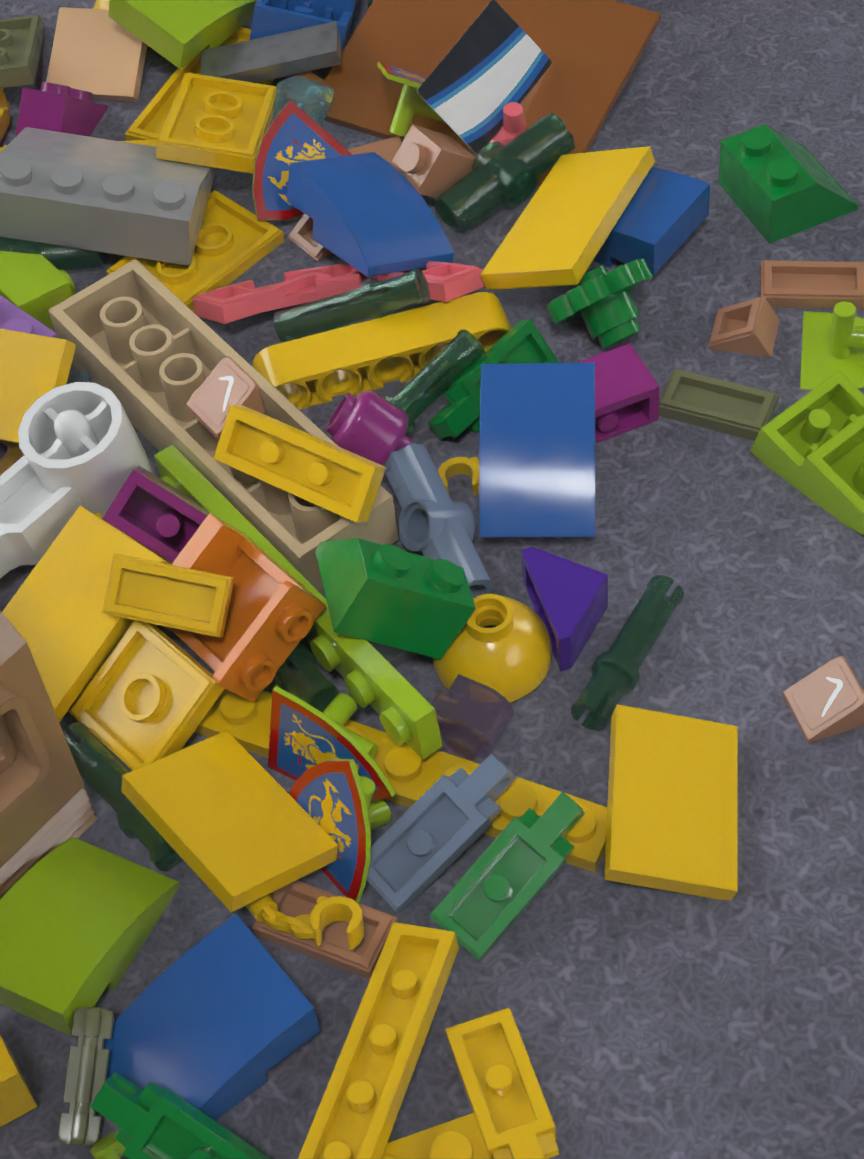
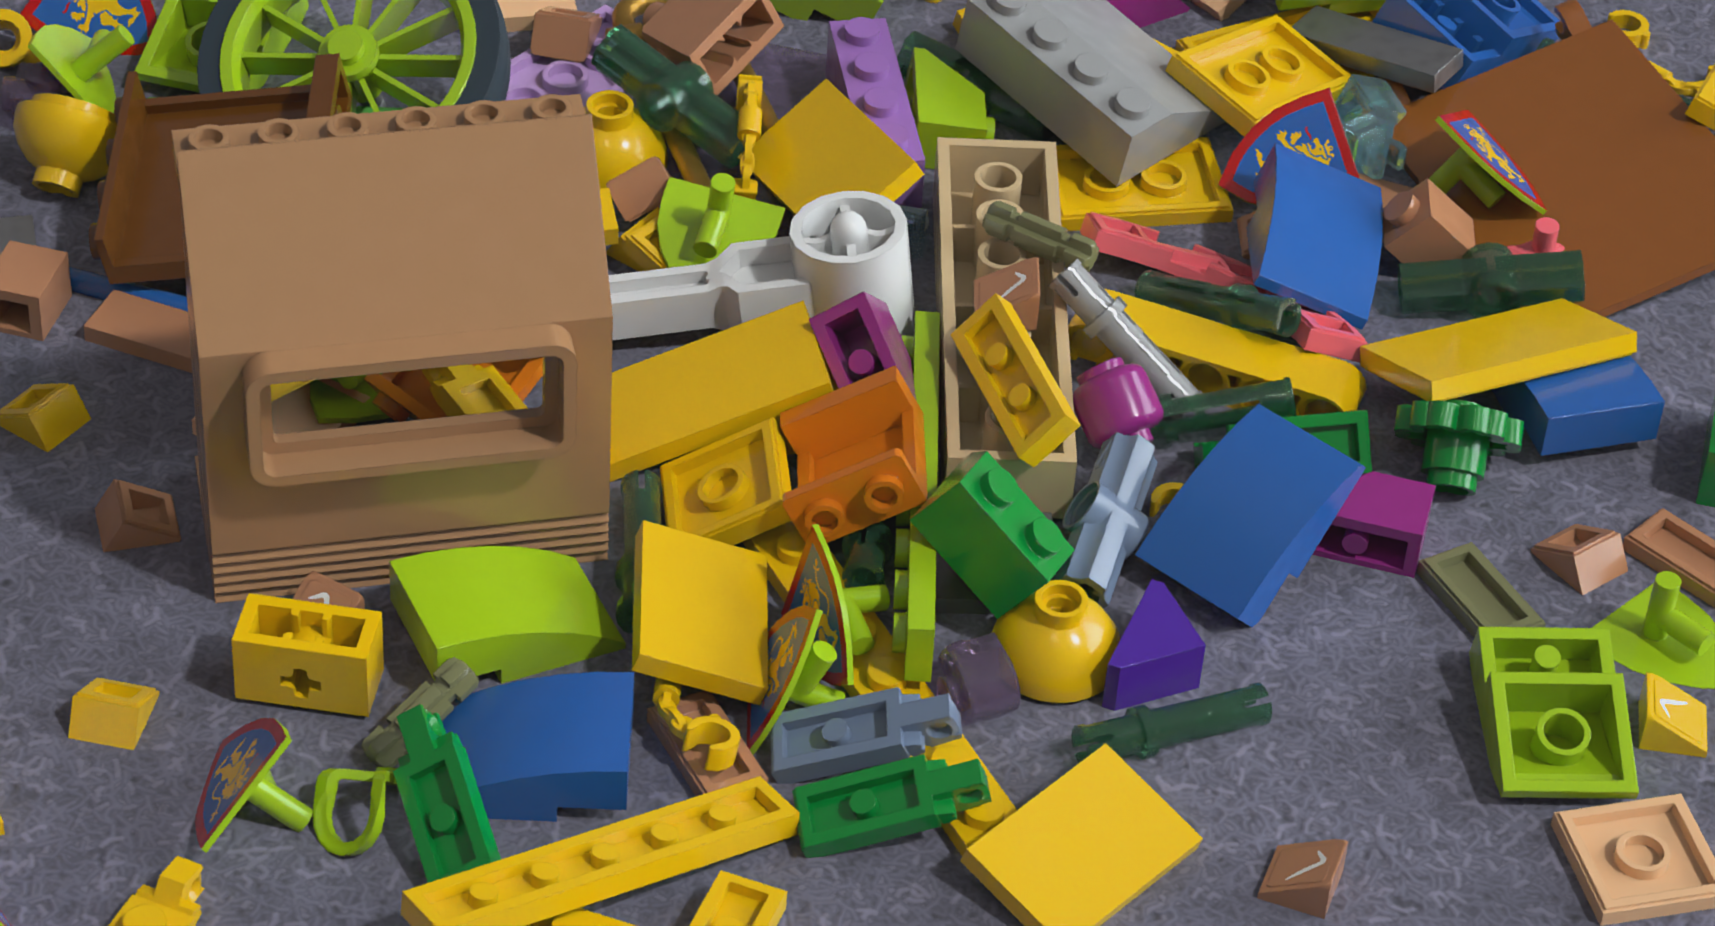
camera: 30 degrees right, 10 degrees down
(168, 595) = (806, 411): yellow tile -> none
(202, 338) = (1039, 236): none -> olive axle
(302, 370) = (1118, 331): none -> light grey pin
(340, 126) = (1372, 143): none -> clear light blue tile
(482, 74) = (1558, 171): sticker -> none

